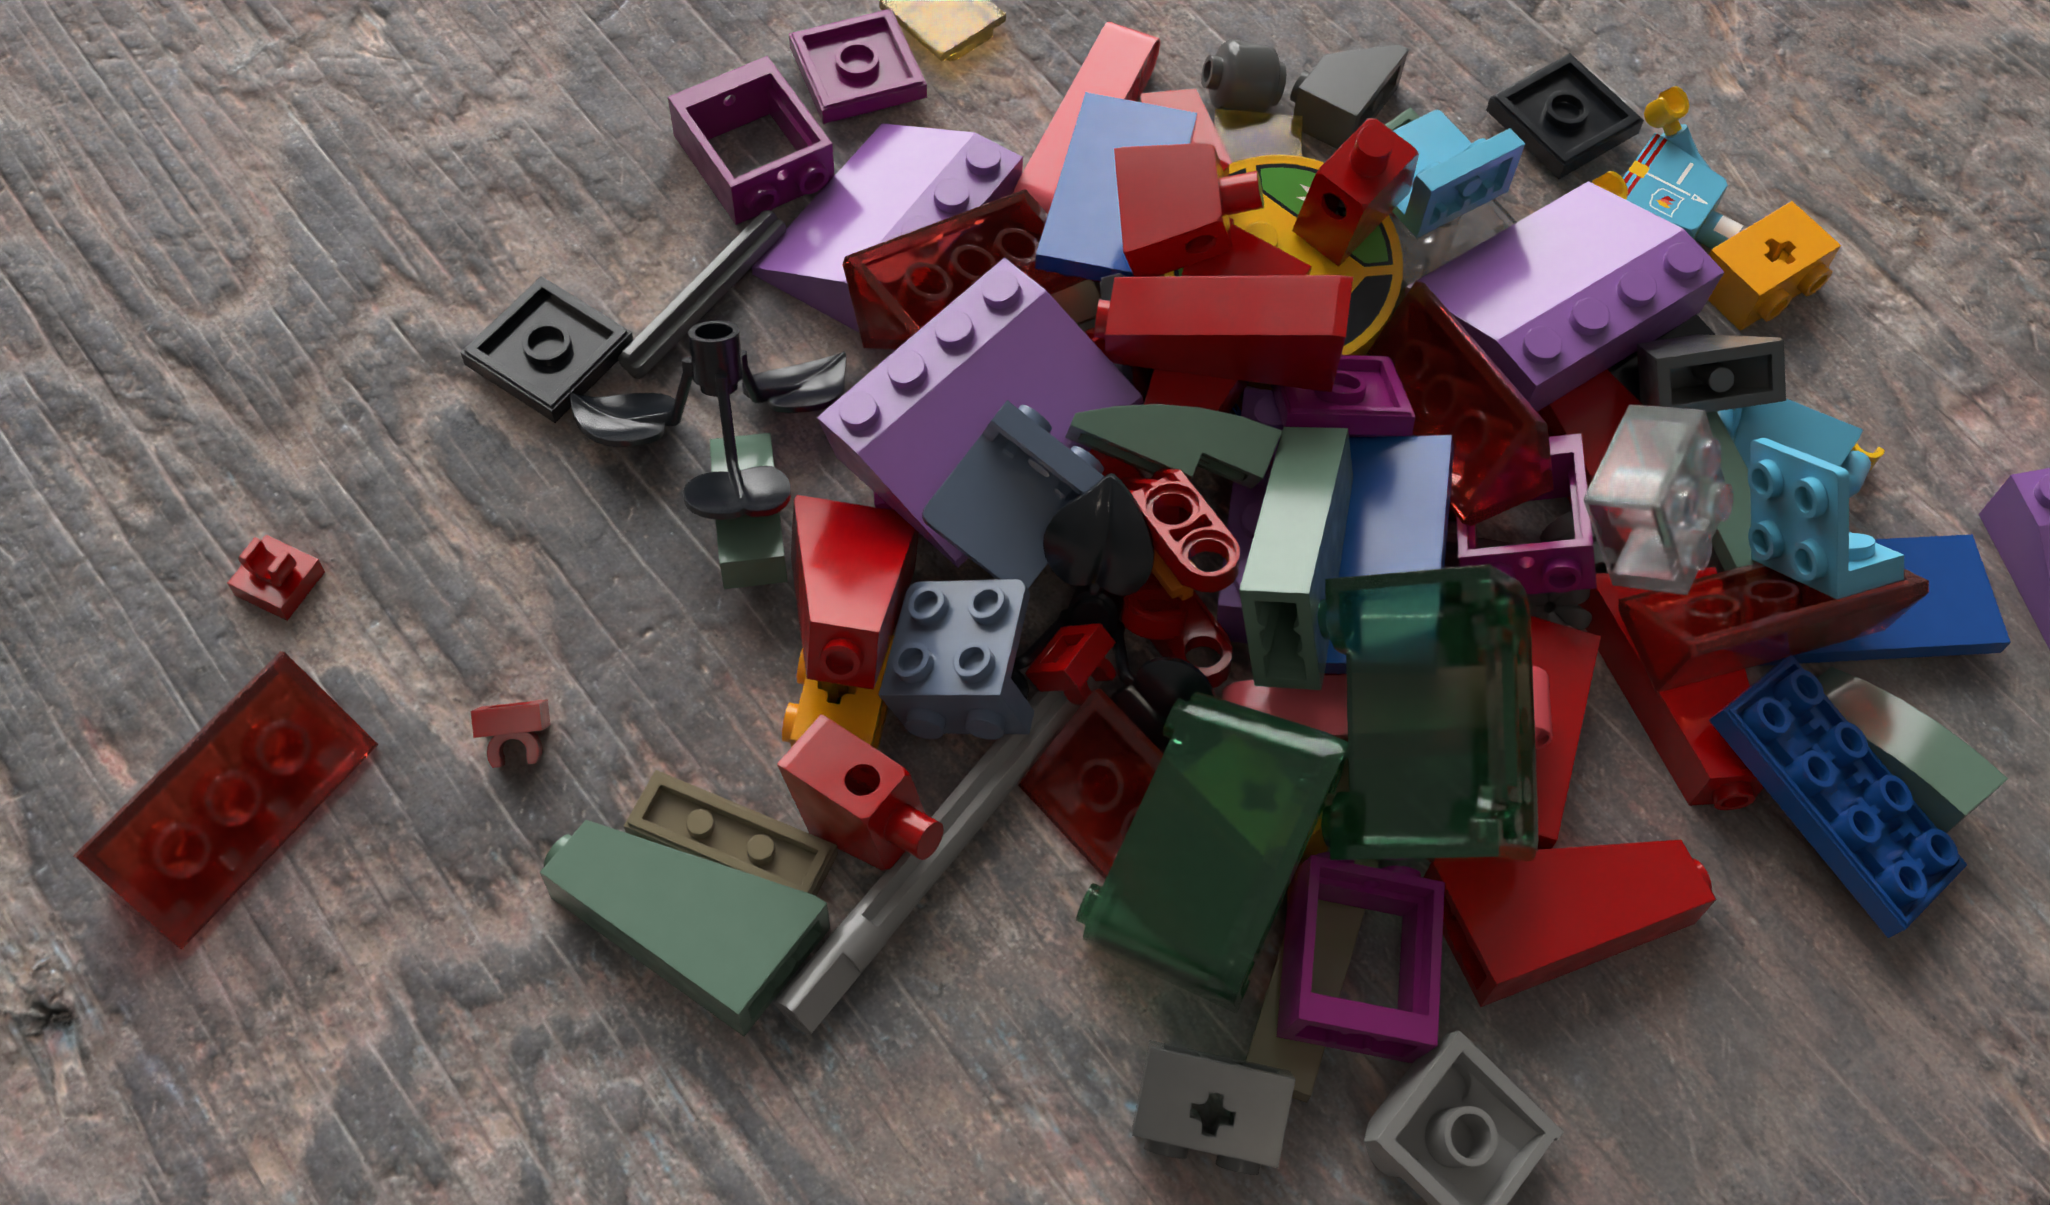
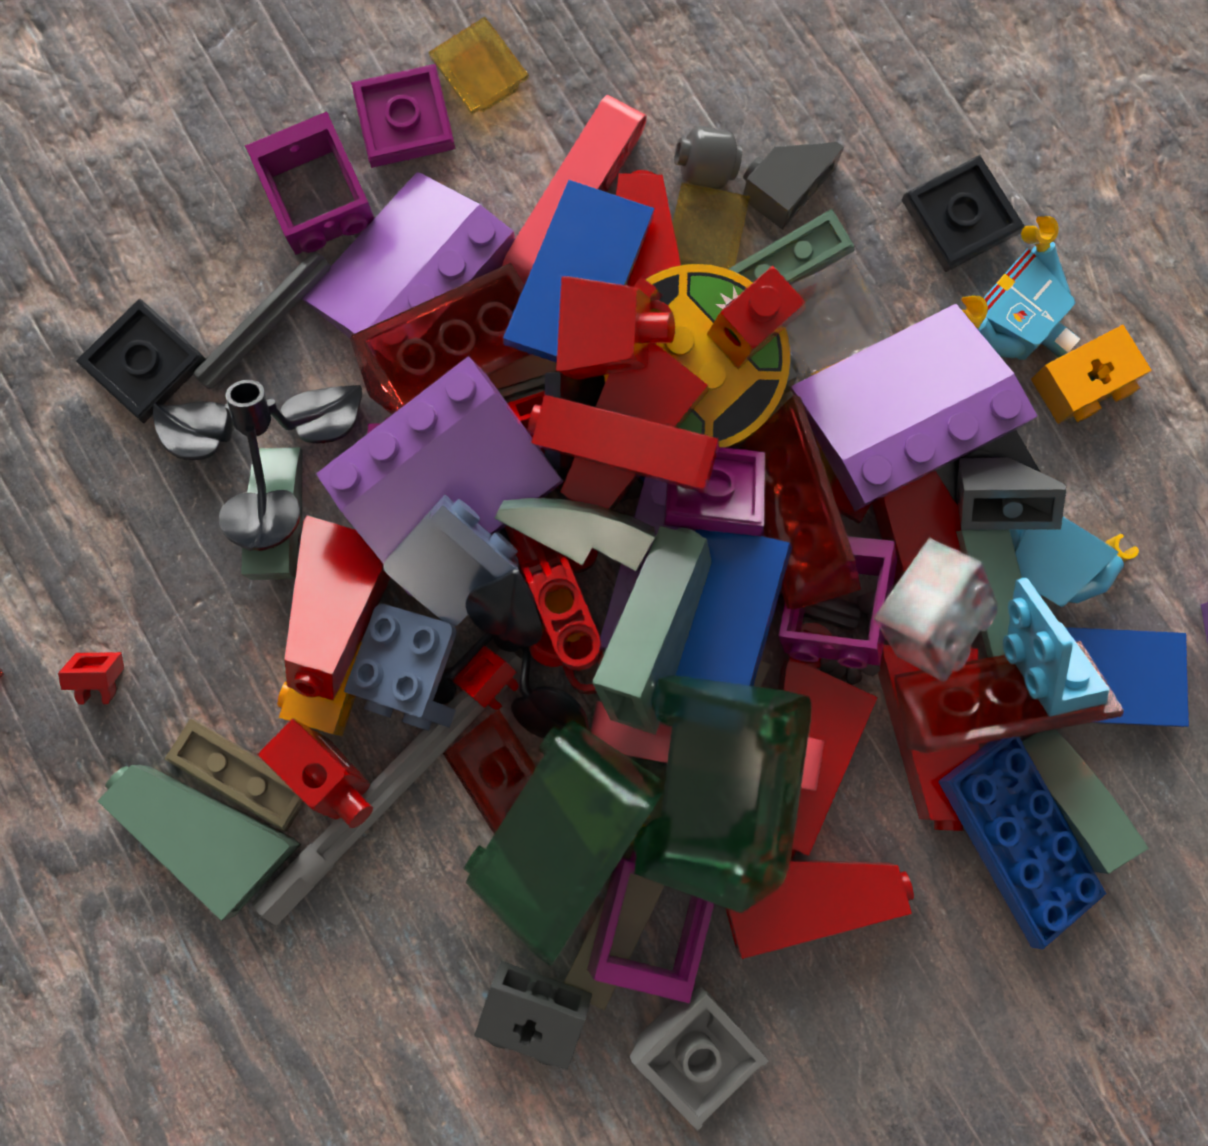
camera: 10 degrees right, 20 degrees up
(1453, 172) = (835, 282): medium azure bracket -> none

